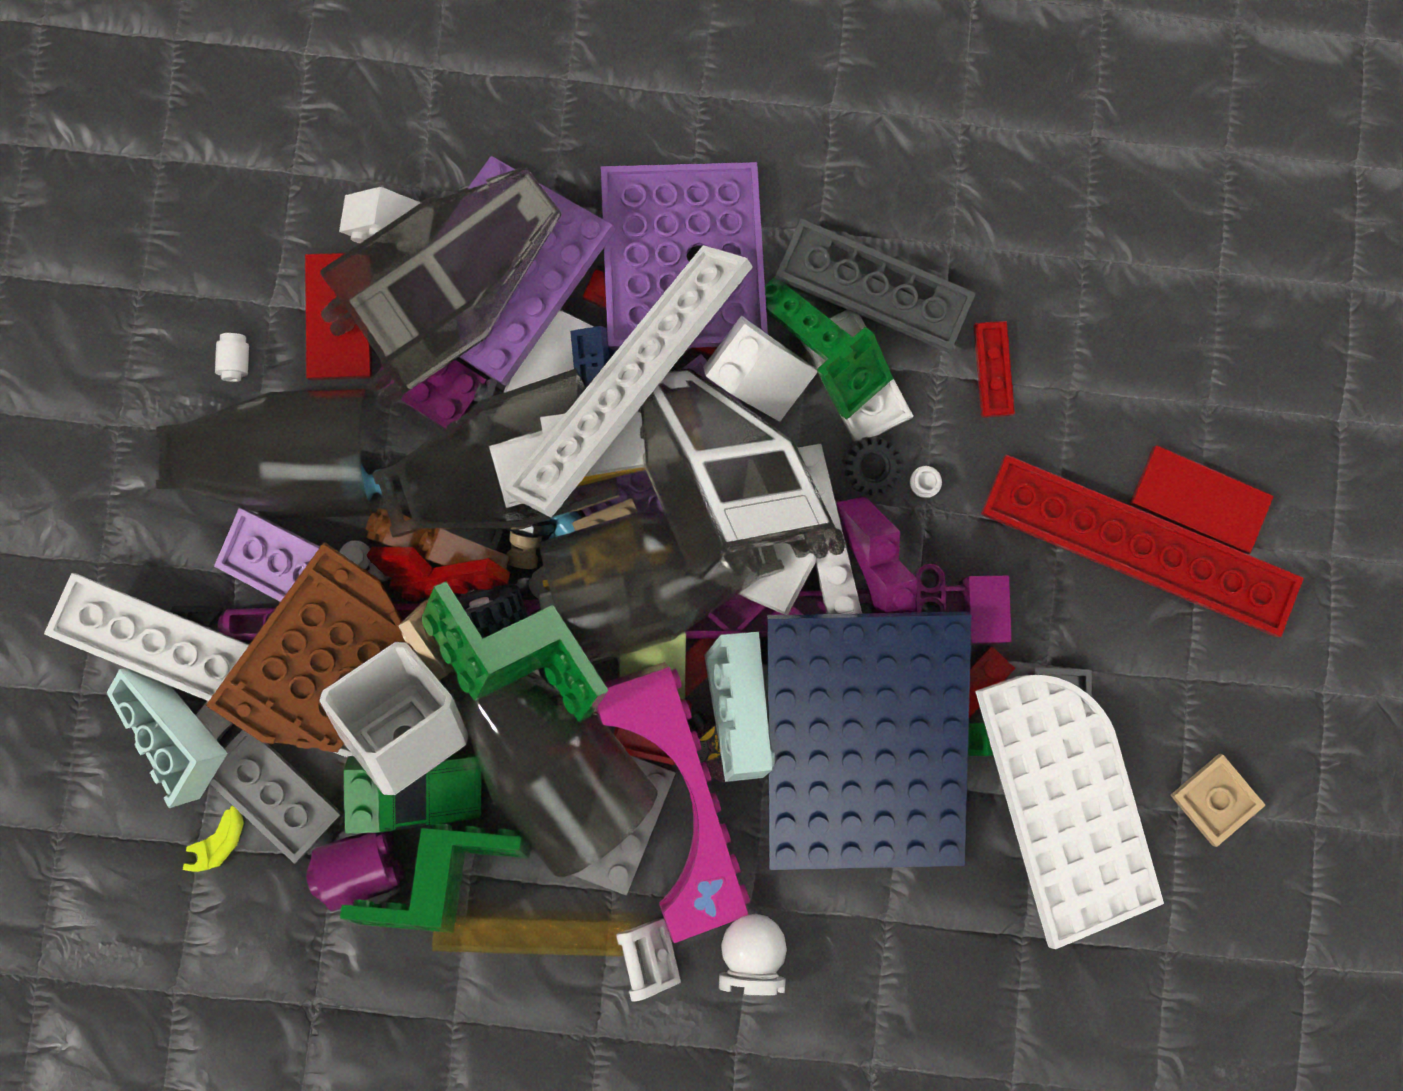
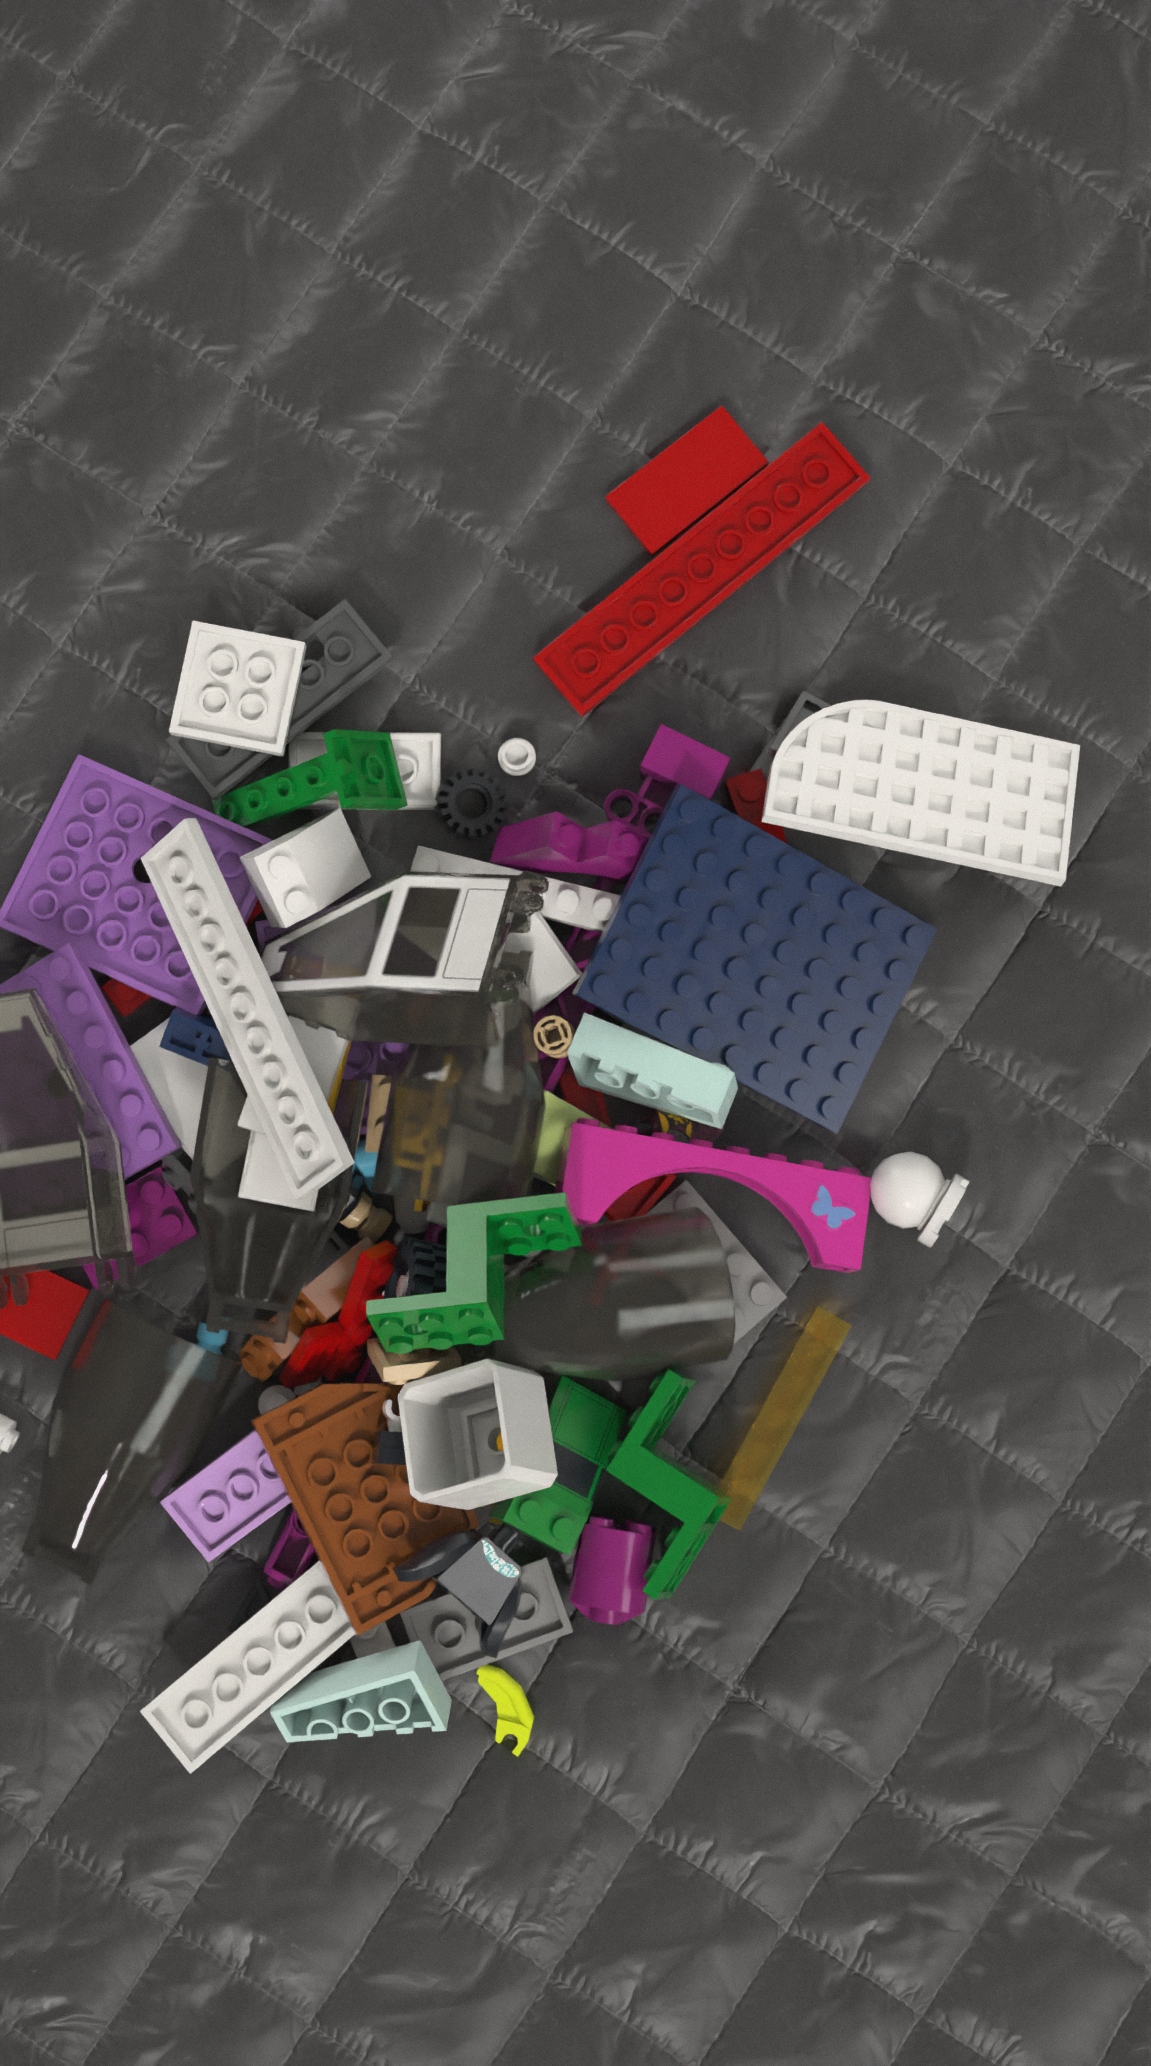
camera: 55 degrees left, 0 degrees up
(295, 768) = (476, 1574): none -> black torso
(358, 653) = (389, 1444): none -> black piece
(656, 956) = (865, 1297): white plate -> none
(729, 623) = (559, 1038): none -> tan wheel
(866, 249) = (237, 688): none -> white plate
(978, 740) = (816, 845): green tile -> none
(994, 369) = (435, 621): red tile -> none
(1217, 800) = (1003, 633): tan plate -> none

